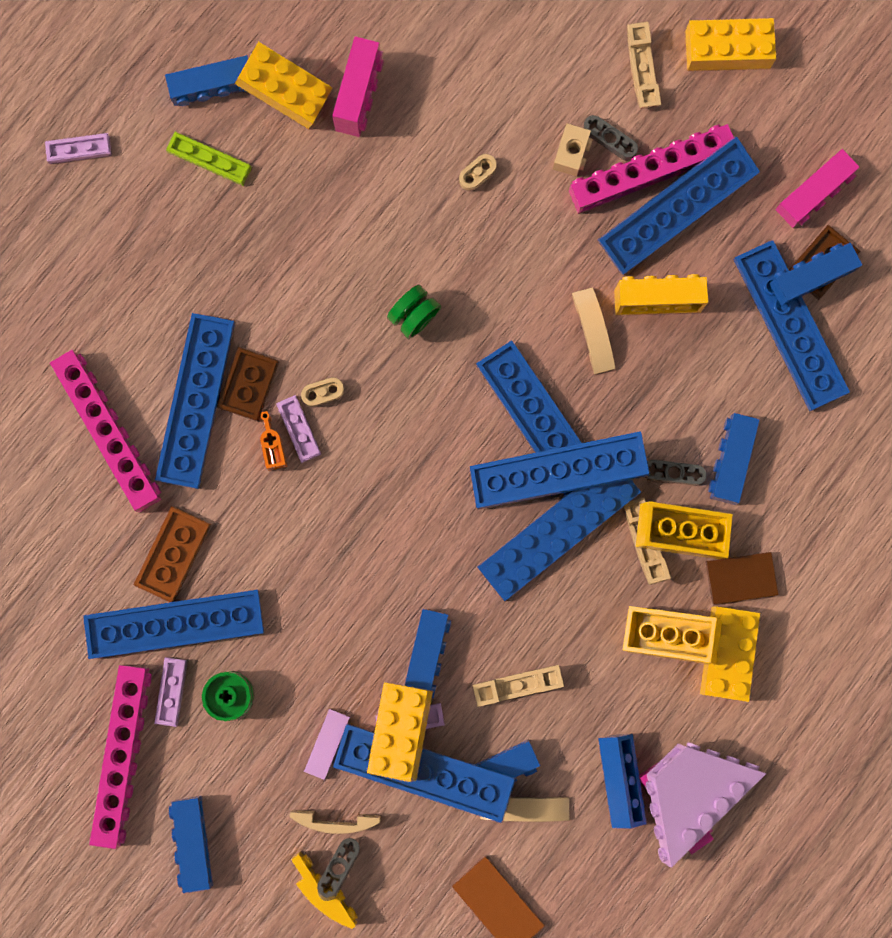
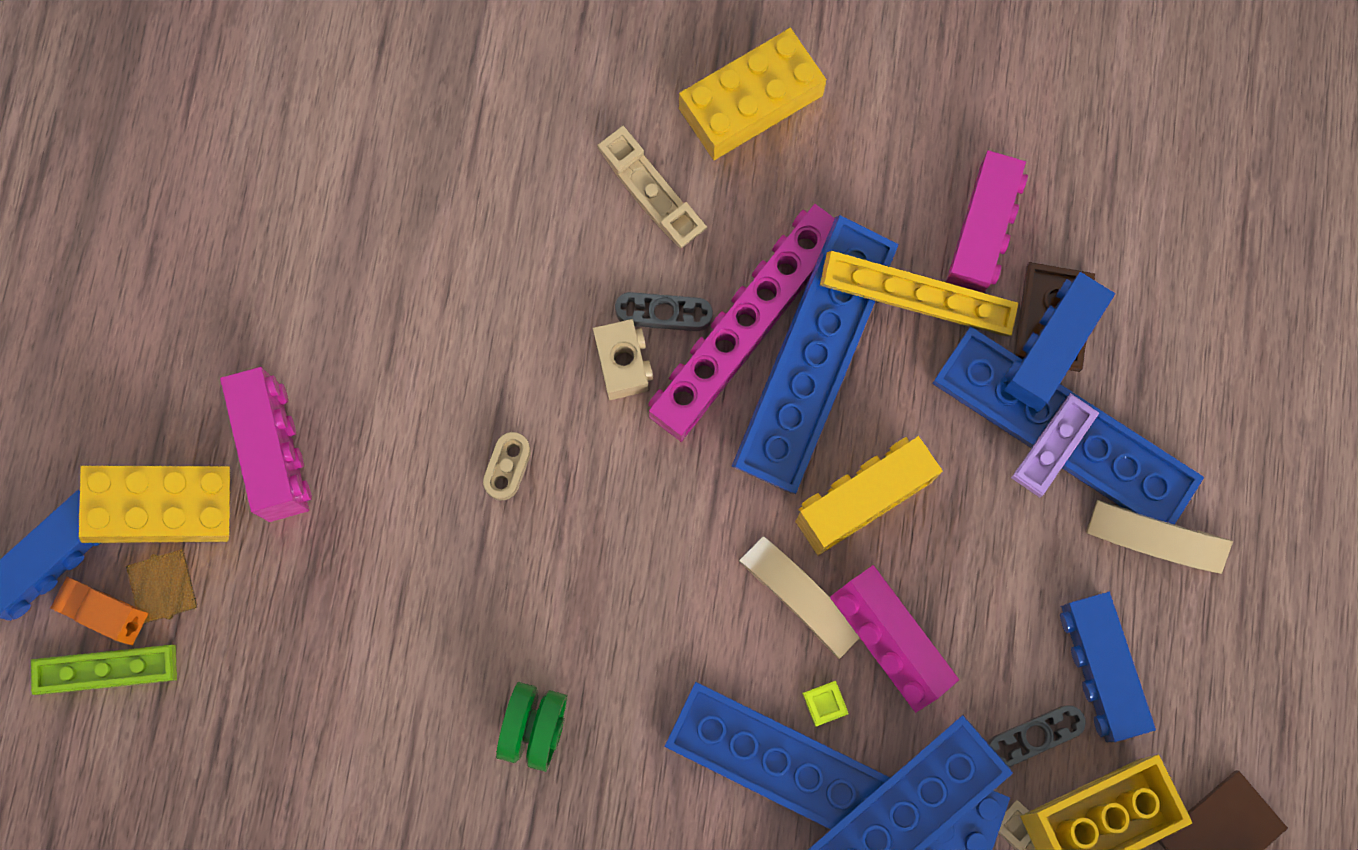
camera: 30 degrees left, 5 degrees down
(223, 126) = (99, 611): none -> orange piece
(261, 132) = (162, 585): none -> clear yellow piece
(573, 392) = (825, 703): none -> neon yellow tile
(629, 377) = (894, 639): none -> dark pink brick
(754, 204) = (918, 293): none -> yellow plate
(779, 328) = (1055, 445): none -> lavender tile
(805, 410) = (1159, 538): none -> tan slope

